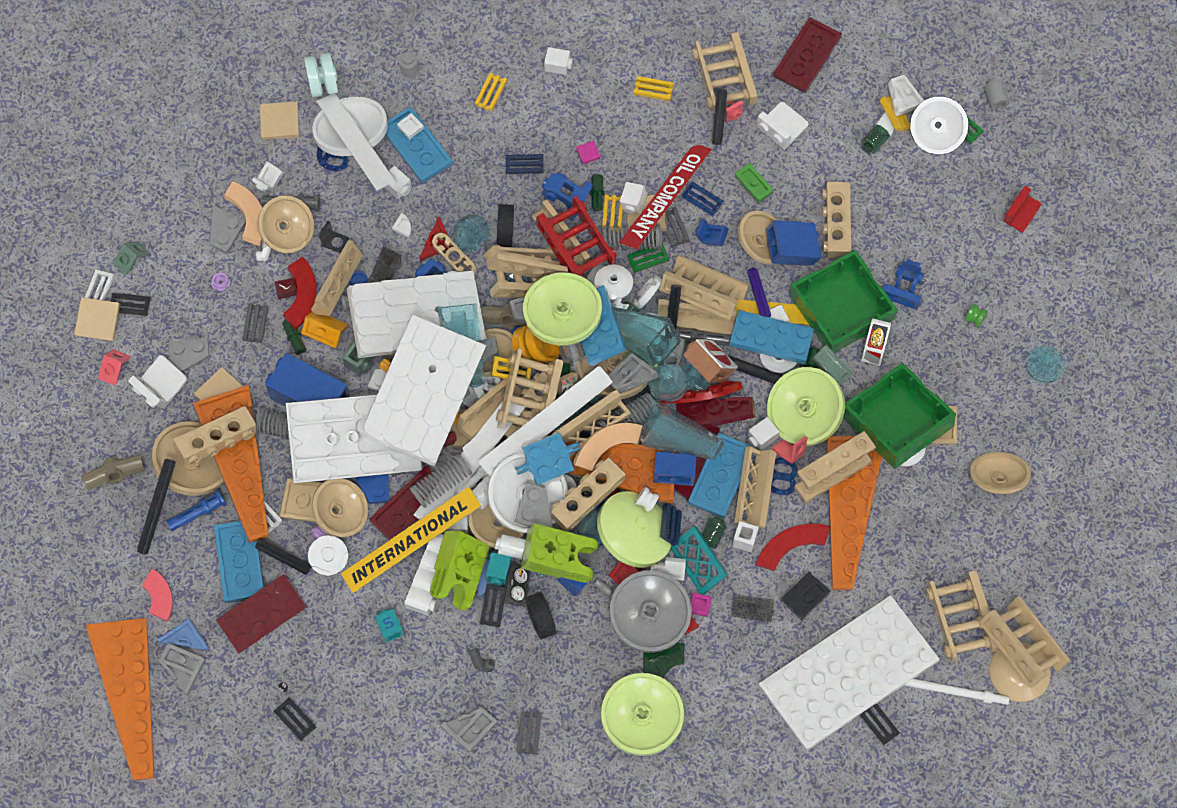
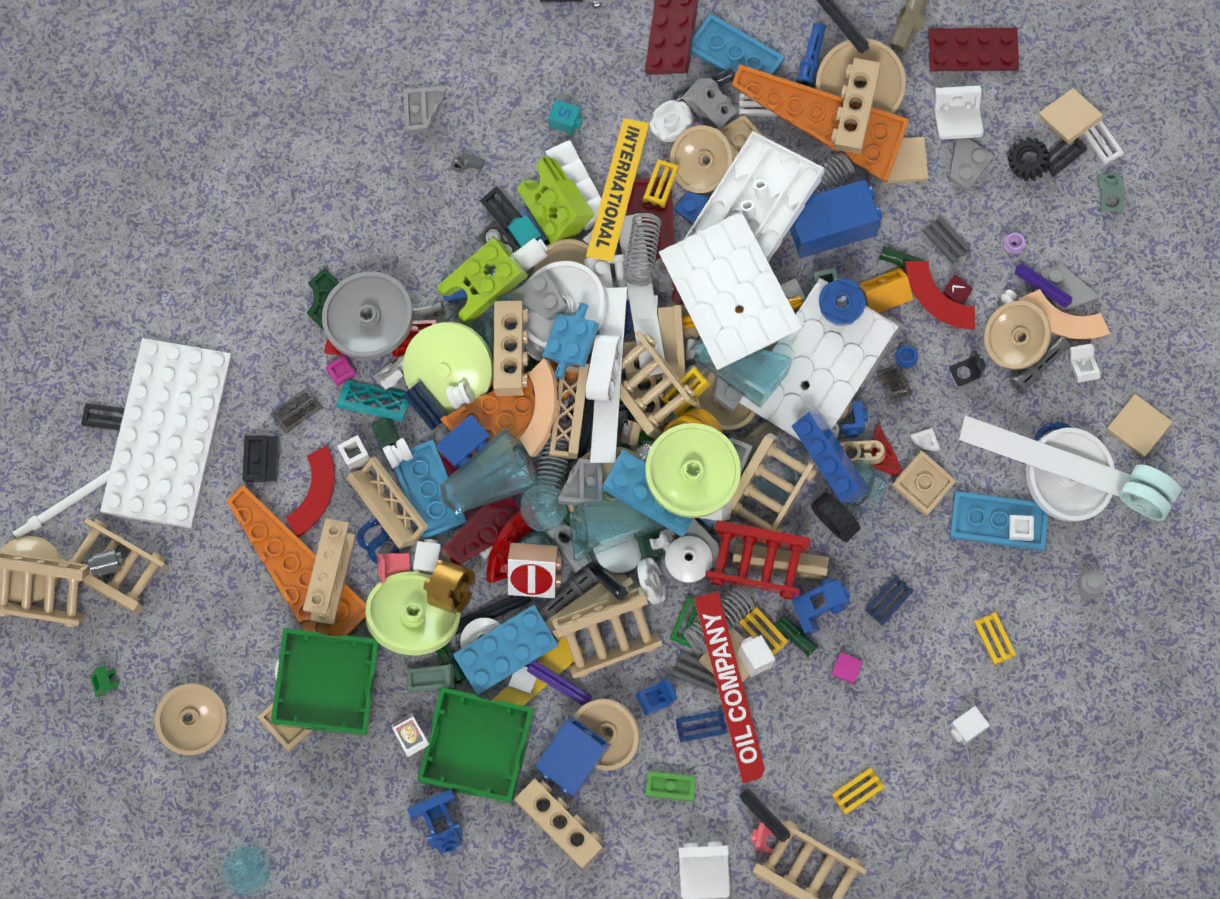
camera: 140 degrees right, 5 degrees up
(99, 418) = (973, 49): none -> dark red plate
(111, 366) = (1013, 91): coral bracket -> none
(142, 322) = (1029, 146): none -> black tyre
(236, 239) = (1046, 286): none -> dark purple axle
(294, 537) = (709, 103): none -> light grey brick
(337, 280) = (918, 332): tan fence -> none
(362, 334) = (847, 314): none -> blue plate
(384, 525) = (655, 200): none -> yellow tile
(402, 185) = (973, 468): white brick -> none
(432, 203) = (923, 483): none -> tan tile
(474, 249) = (830, 457): none -> blue brick
(522, 264) = (773, 487): tan fence -> none
(531, 715) = (363, 135): dark grey tile -> none
(540, 615) = (452, 230): black tyre -> none
(546, 422) = (604, 368): none -> white beam
(642, 714) = (296, 238): yellowish green dish -> none
(722, 511) = (397, 453): none -> white wheel
(770, 392) = (449, 586): none -> pearl gold brick
(966, 614) = (106, 562): none -> dark grey brick
(976, 315) = (348, 854): bright green wheel -> none
(1034, 552) = (101, 682): none -> green tile

